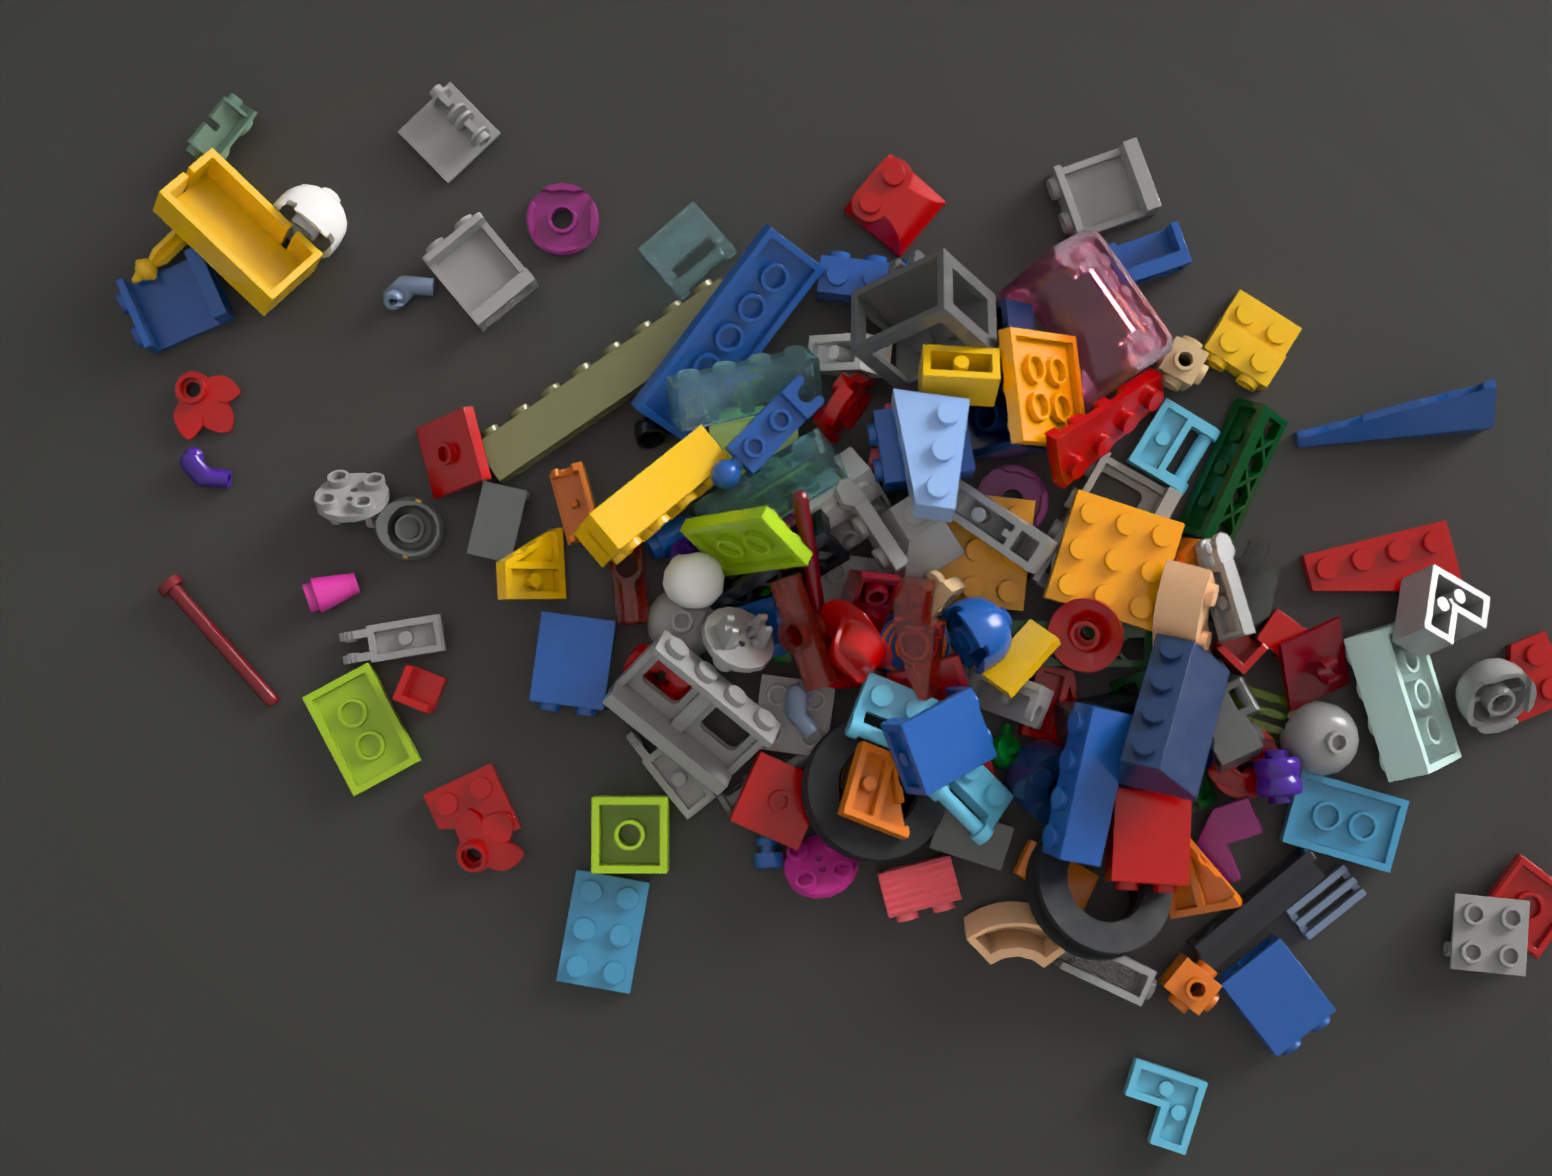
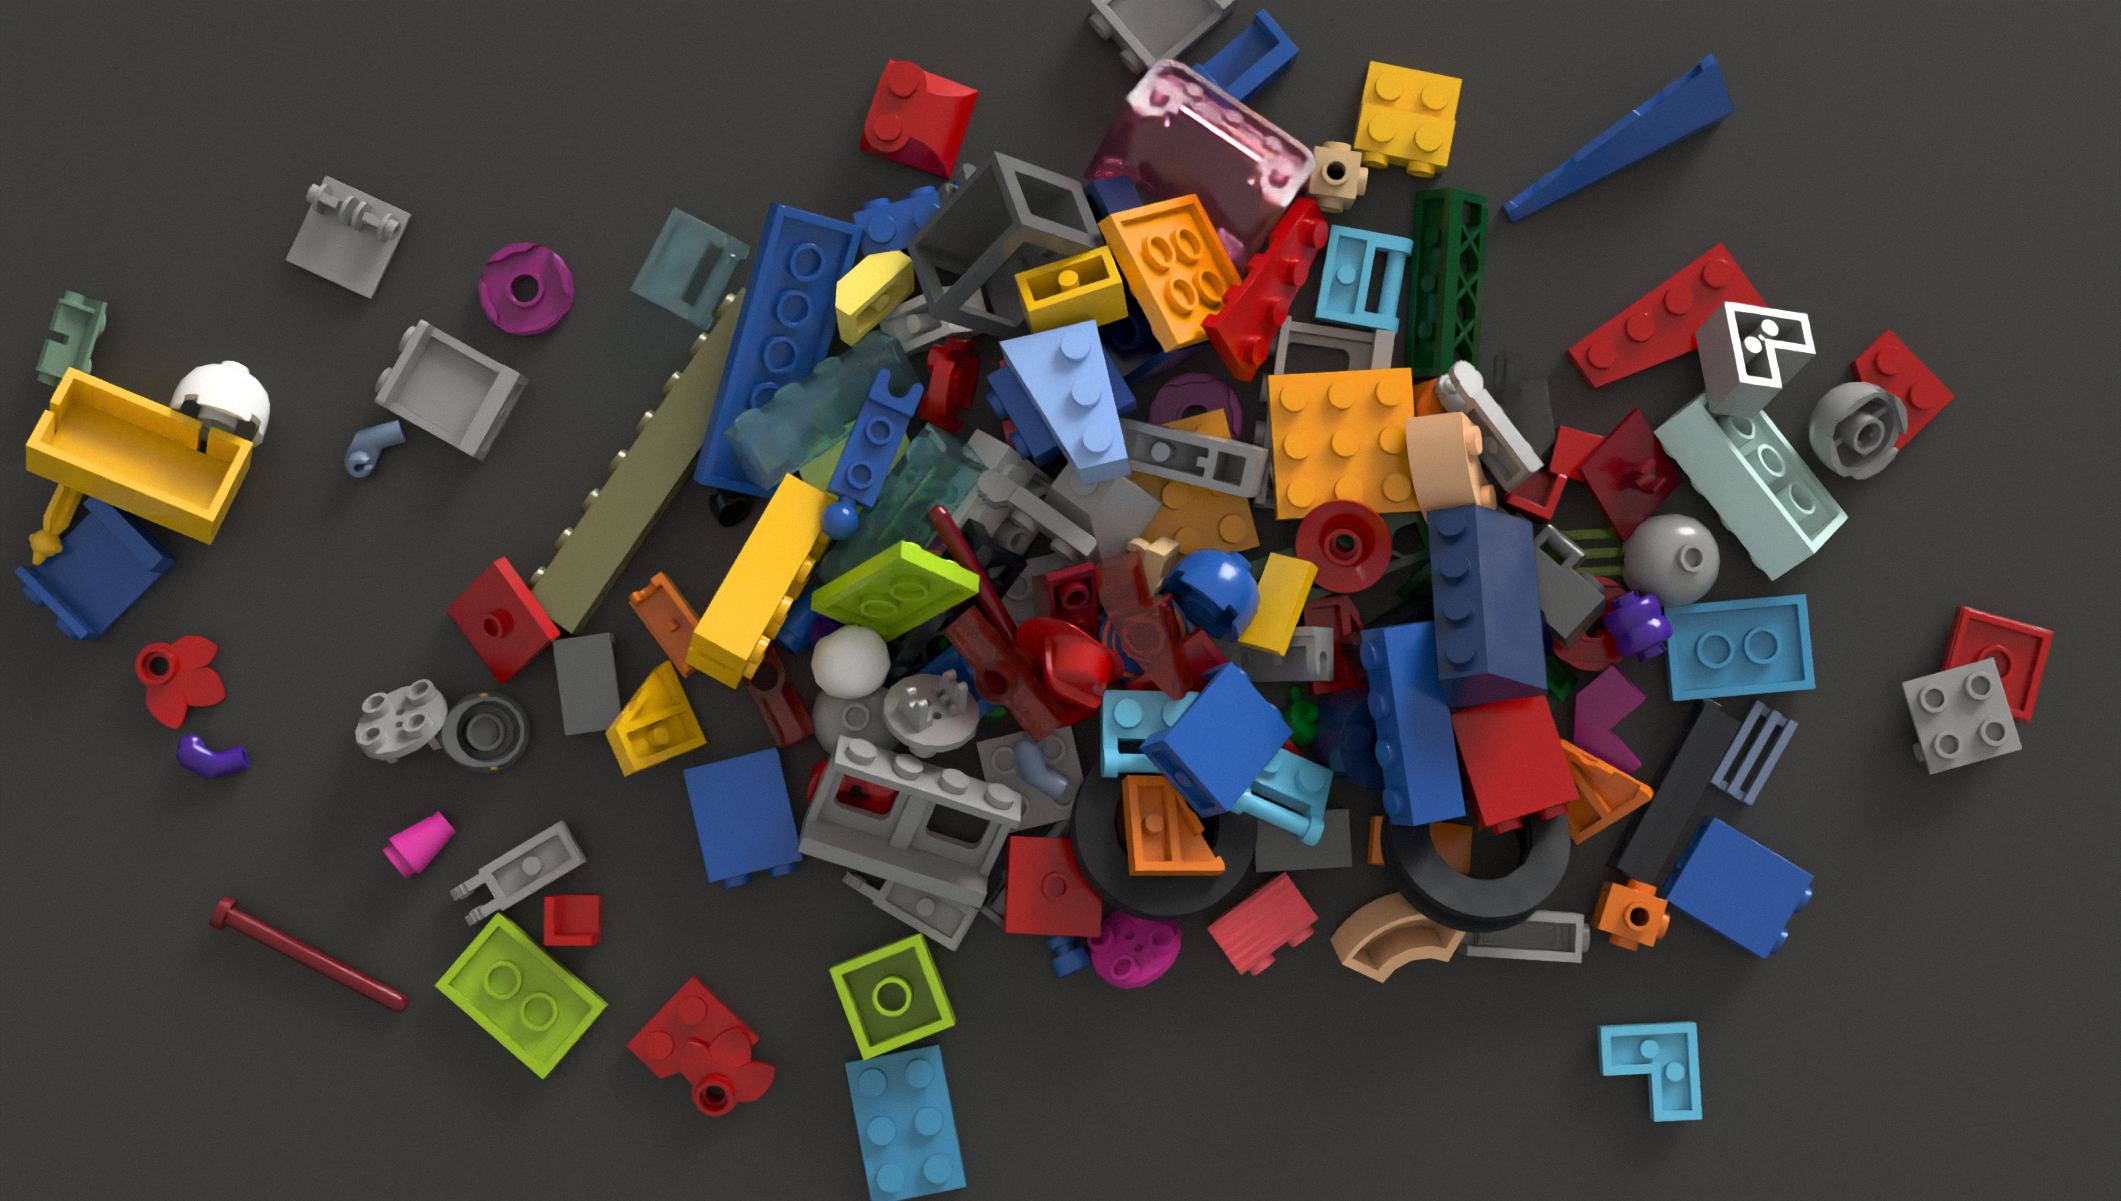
camera: 20 degrees left, 0 degrees up
(813, 318) = (872, 293): none -> light yellow slope

